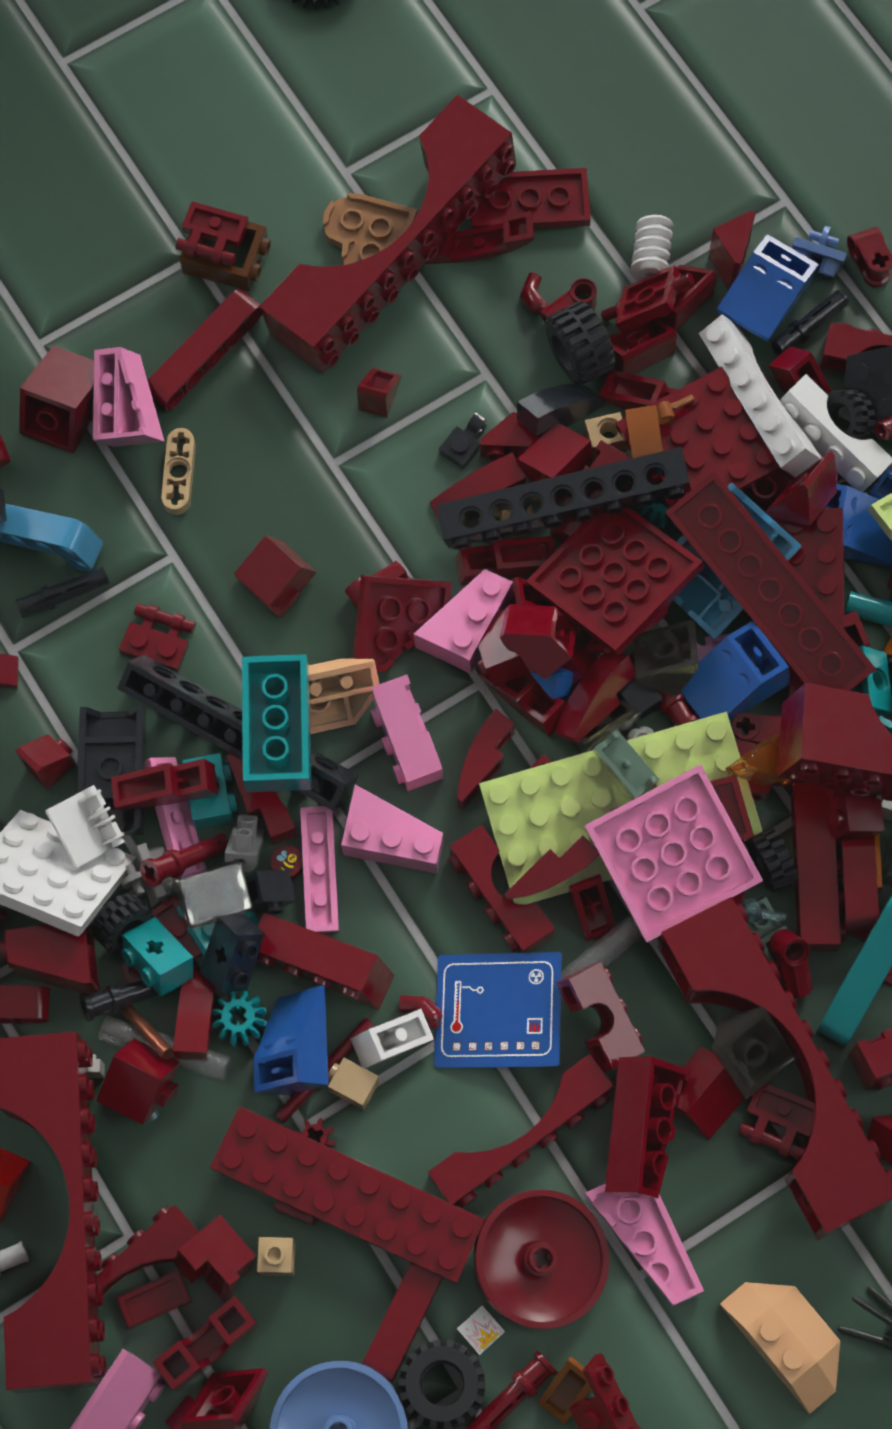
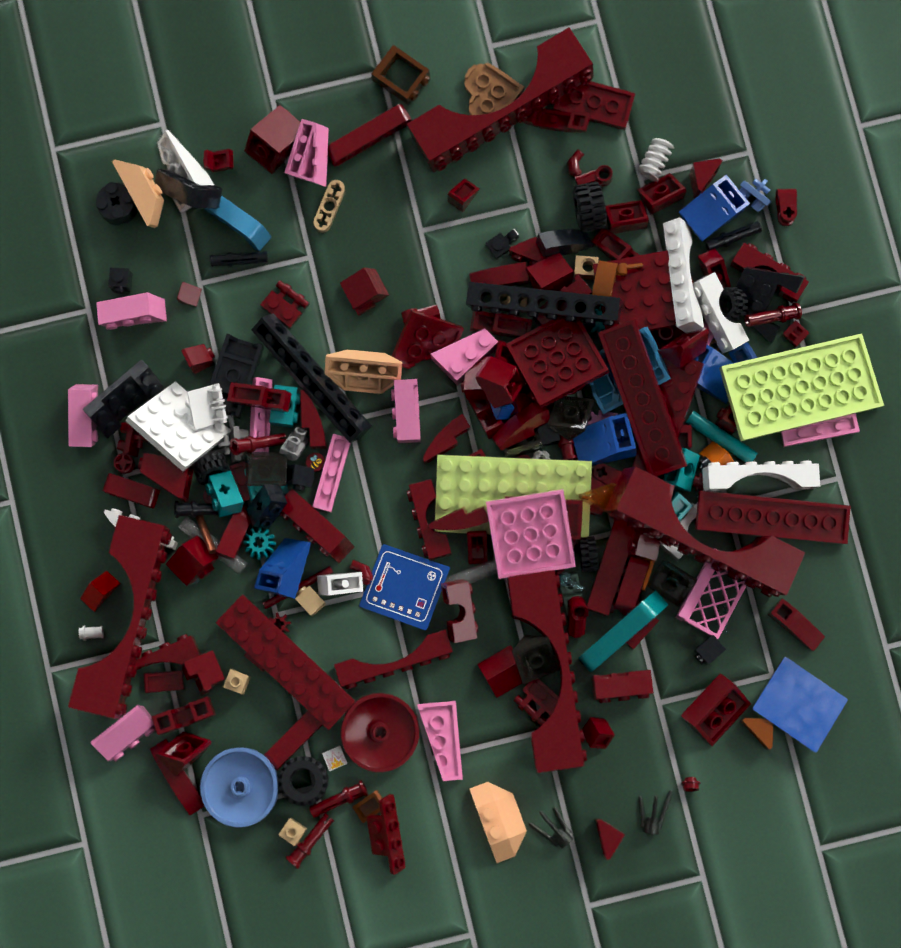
camera: 20 degrees right, 10 degrees up
(215, 225) = (399, 61): dark red plate -> none
(276, 723) = (332, 384): teal brick -> none
(389, 835) = (377, 466): bright pink wedge -> none
(625, 764) = (522, 474): sand green hinge -> none
(643, 1125) = (460, 679): dark red wedge -> none
(648, 299) = (640, 191): dark red plate -> none

